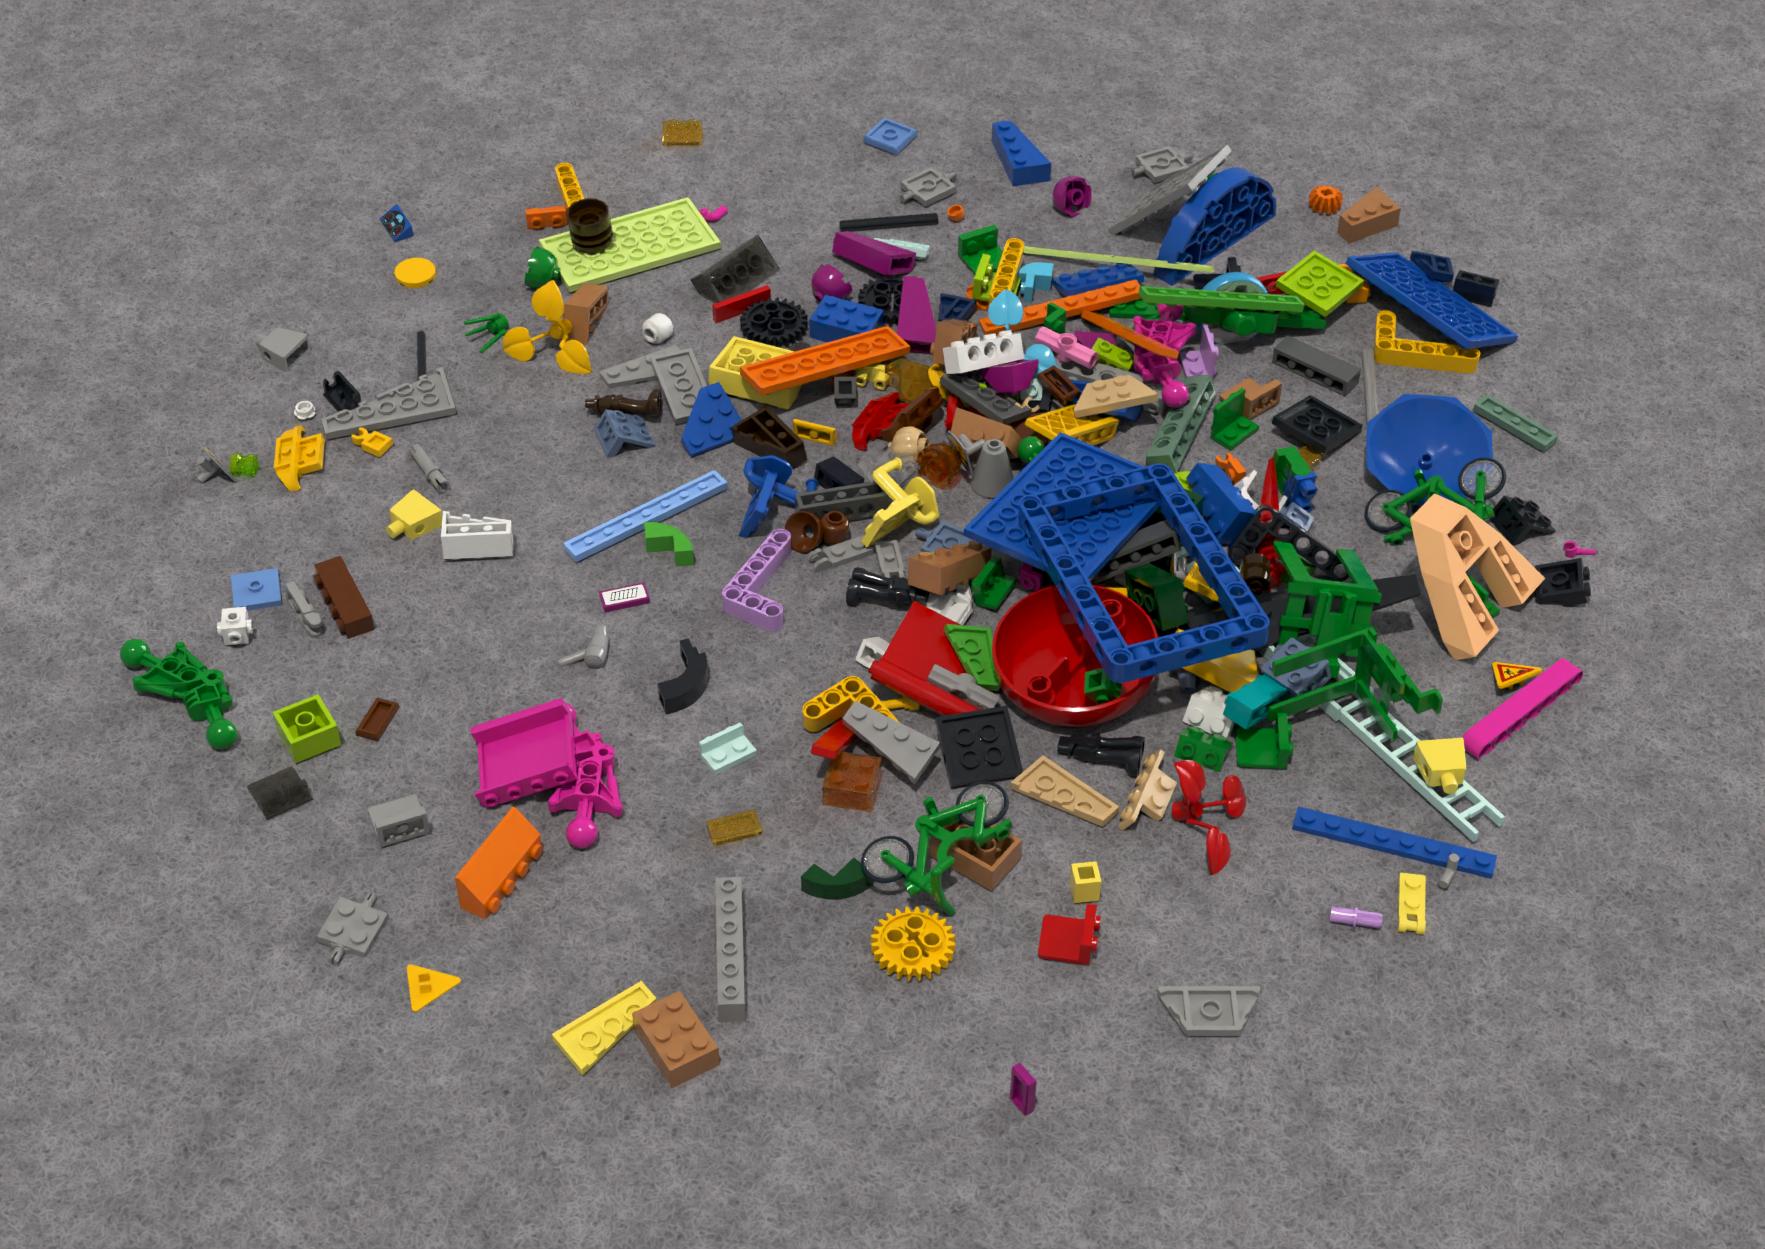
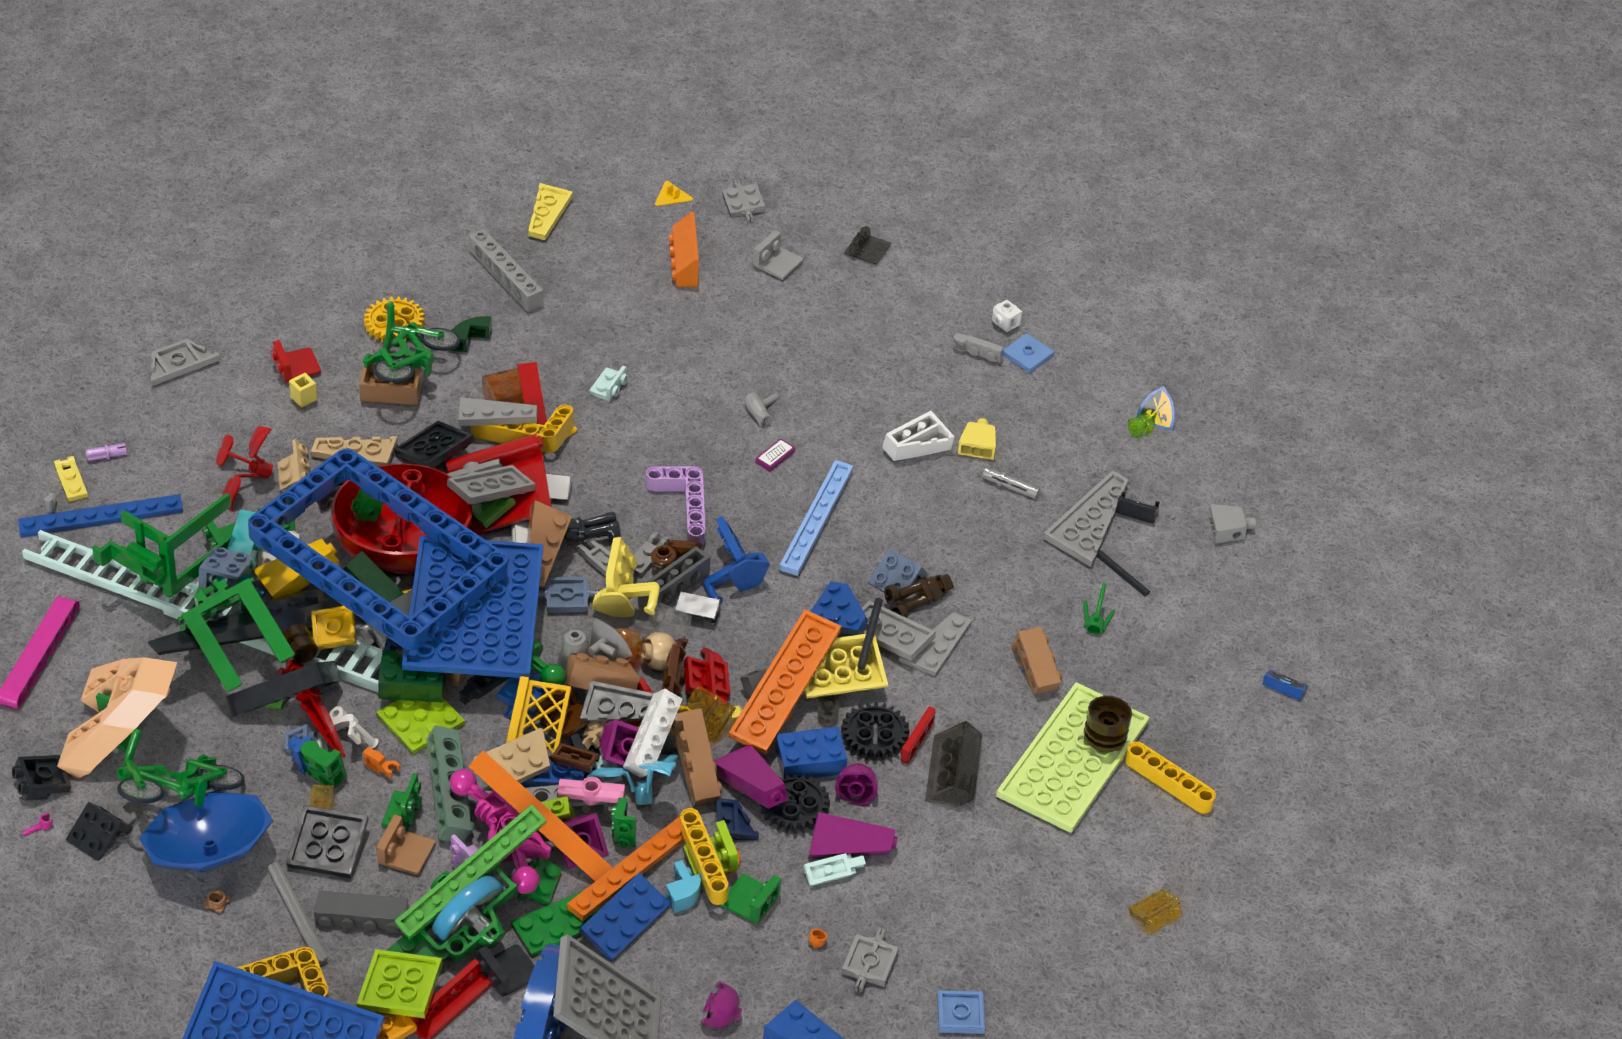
camera: 145 degrees right, 0 degrees up
(185, 678) = (1001, 275): green piece -> none
(297, 456) = (1115, 450): yellow plate -> none
(304, 410) = (1152, 486): white plate -> none
(306, 728) = (886, 275): lime brick -> none
(343, 597) = (961, 366): reddish brown brick -> none
(372, 443) = (1073, 484): yellow plate -> none
(377, 719) = (856, 311): reddish brown tile -> none
(415, 272) = (1216, 645): yellow tile -> none
(525, 753) = (729, 312): dark pink panel -> none
(541, 268) = (1110, 679): green cylinder -> none
(546, 217) = (1176, 748): orange bracket -> none
(549, 303) = (1032, 620): yellow plant -> none
(588, 792) = (679, 318): dark pink piece -> none
(657, 328) = (962, 675): white head -> none
(663, 537) = (785, 502): bright green brick -> none
(675, 1039) = (498, 215): medium nougat brick -> none
(689, 686) = (672, 401): black arch -> none
(715, 215) = (1036, 827): dark pink arm -> none
(715, 363) = (870, 633): none -> black bar
(734, 827) = (563, 339): clear yellow plate -> none
(769, 436) = (771, 610): dark brown wedge -> none
(815, 432) = (751, 643): yellow slope -> none
(888, 222) = (872, 900): black axle -> none
(963, 635) = (491, 484): none -> light grey plate
(1022, 1089) = (269, 260): magenta tile -> none
(1118, 259) = (643, 938): yellowish green piece -> none
(1222, 502) = (367, 709): blue wedge -> none
(1441, 762) = (78, 554): light yellow torso -> none
(1509, 674) = (57, 674): piece -> none
(1515, 423) = (143, 937): sand green plate -> none

